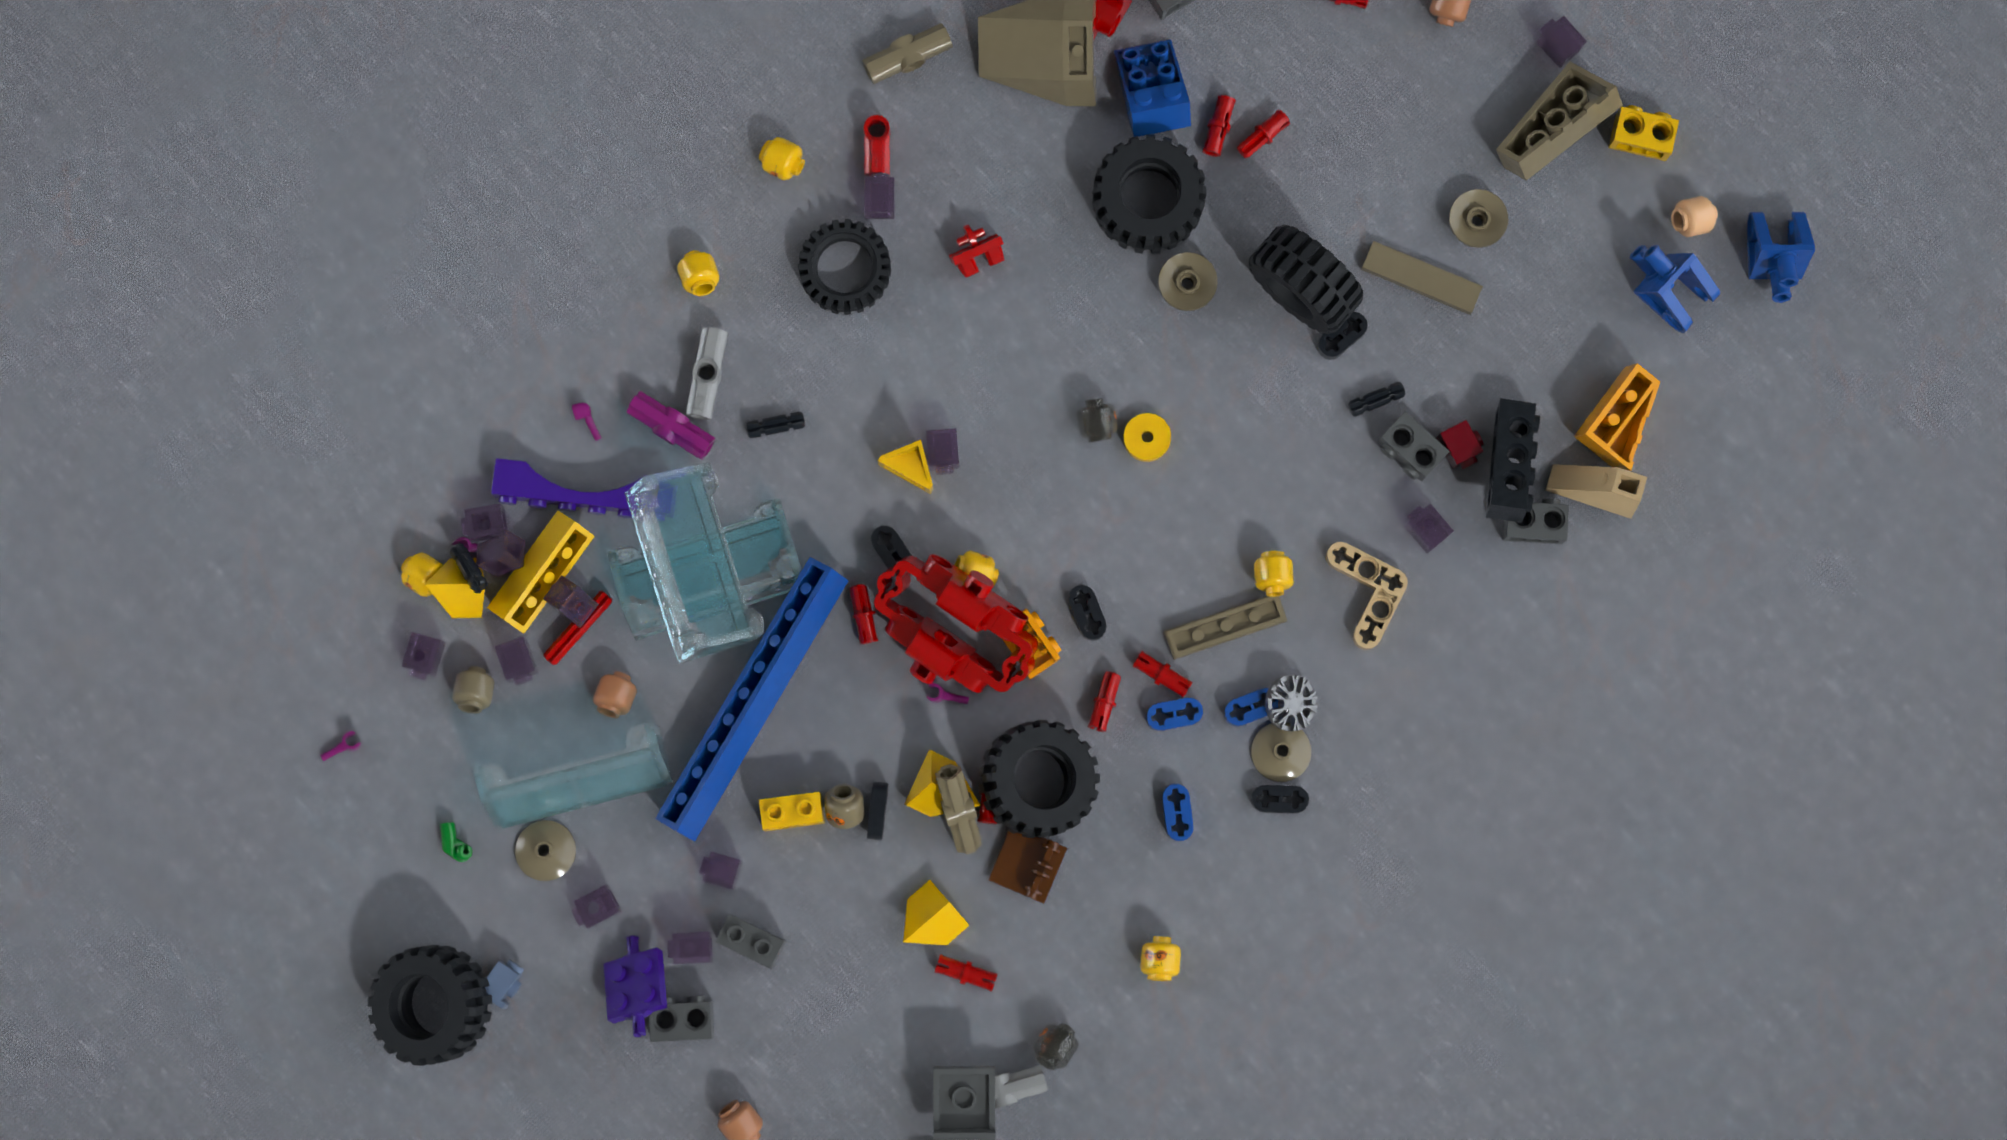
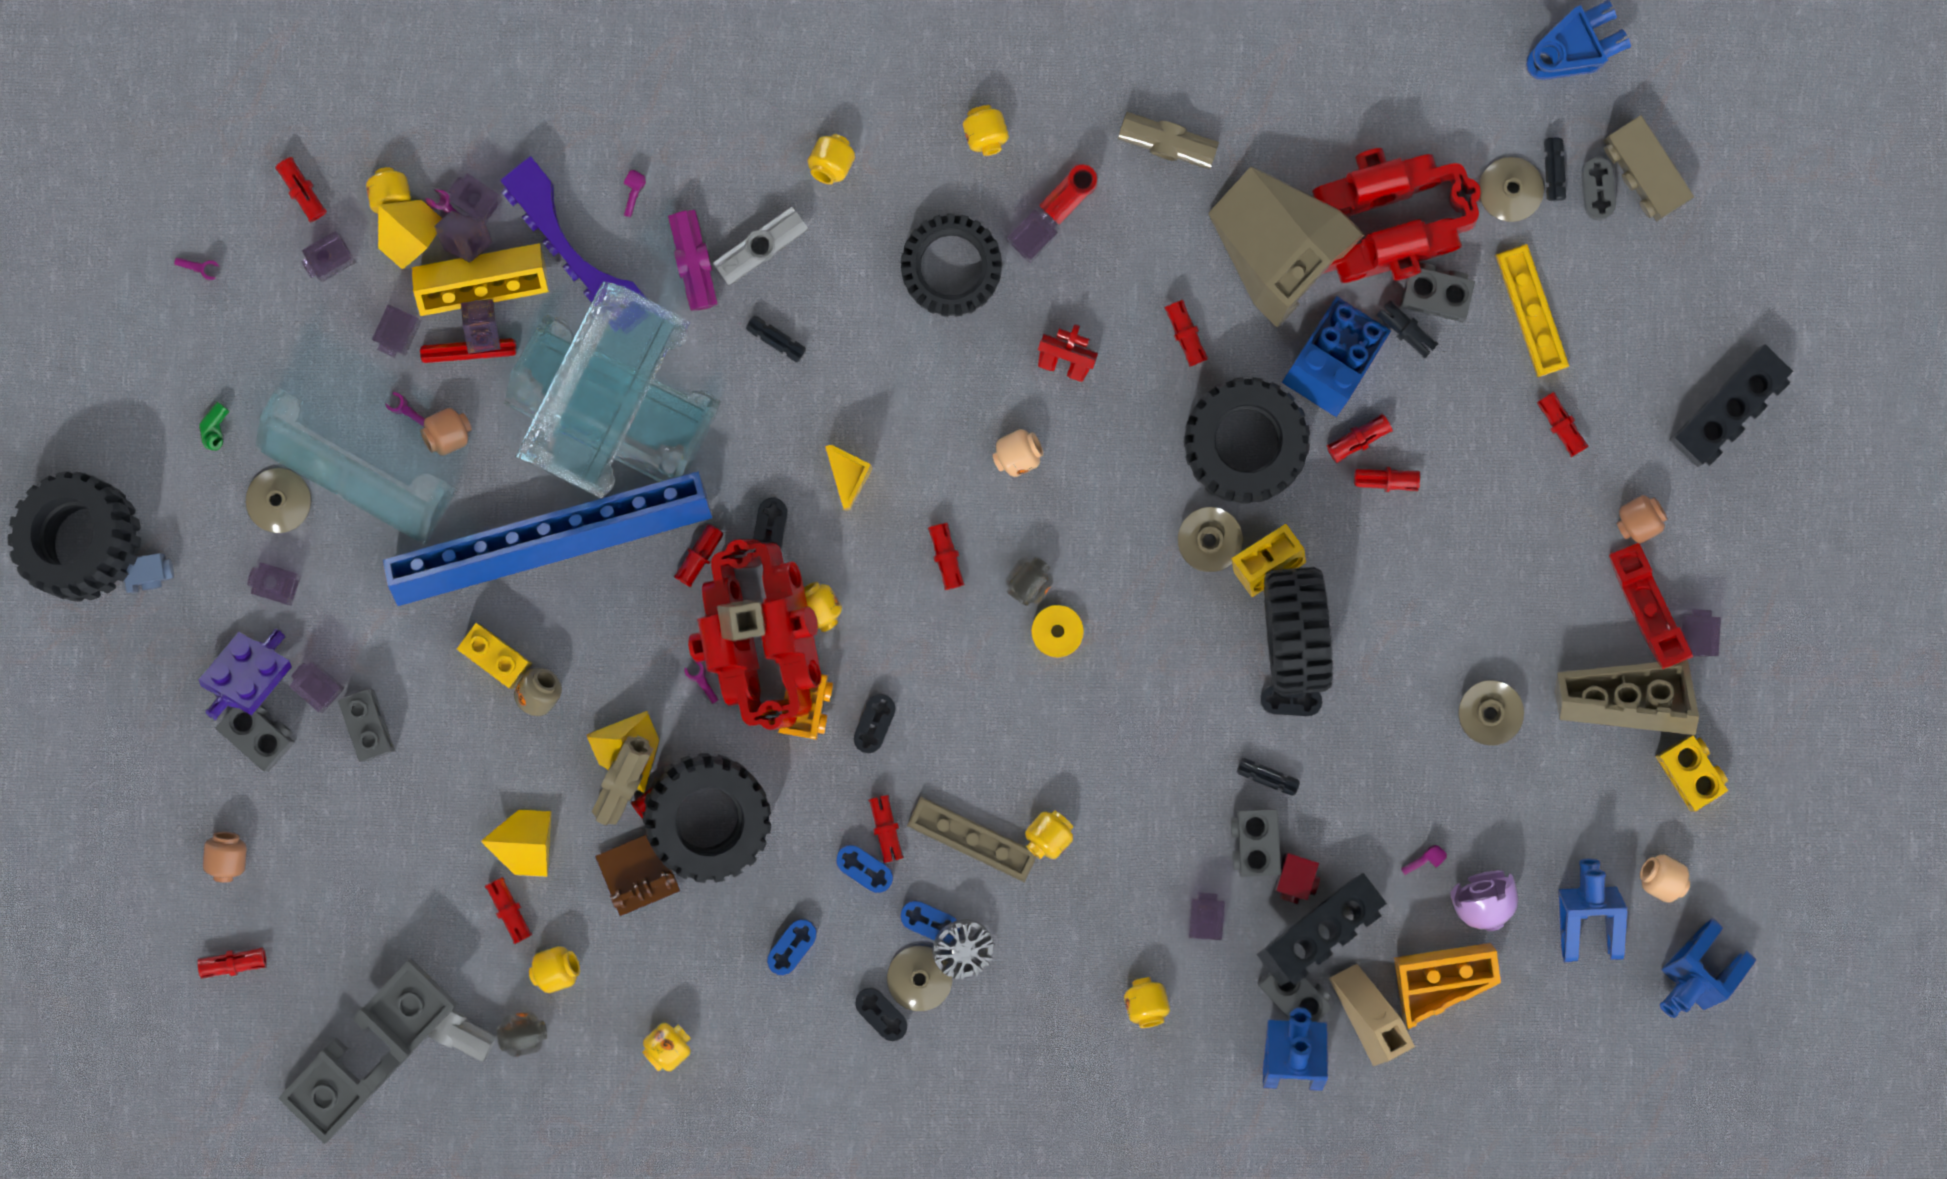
camera: 45 degrees right, 5 degrees up
(361, 629) = (312, 207): none -> red pin
(468, 568) = (425, 224): black axle -> none
(473, 690) = (340, 322): dark tan head -> none
(574, 707) = (404, 409): none -> magenta hand
(721, 870) = (396, 648): clear purple brick -> none
(877, 810) = (561, 719): black beam -> none
(935, 621) = (741, 620): none -> dark tan brick
(943, 451) = (885, 487): clear purple brick -> none
(1007, 345) = (1018, 452): none -> light nougat head
(1026, 458) = (946, 556): none -> red pin
(1035, 981) = (554, 969): none -> yellow head
(1040, 165) = (1186, 333): none -> red pin
(1104, 701) = (820, 806): red axle -> none
(1180, 27) = (1407, 329): none -> black pin
(1238, 245) = (1273, 552): none -> yellow brick
(1380, 593) = (1119, 931): tan beam -> none
(1421, 277) = (1400, 715): dark tan tile -> none
(1445, 621) = (1146, 1003): none -> yellow head
(1510, 55) = (1649, 607): none -> red slope
(1531, 346) = (1433, 854): none -> magenta hand
(1573, 555) = (1296, 1051): none -> blue piece
(1596, 340) = (1486, 901): none -> lavender cylinder

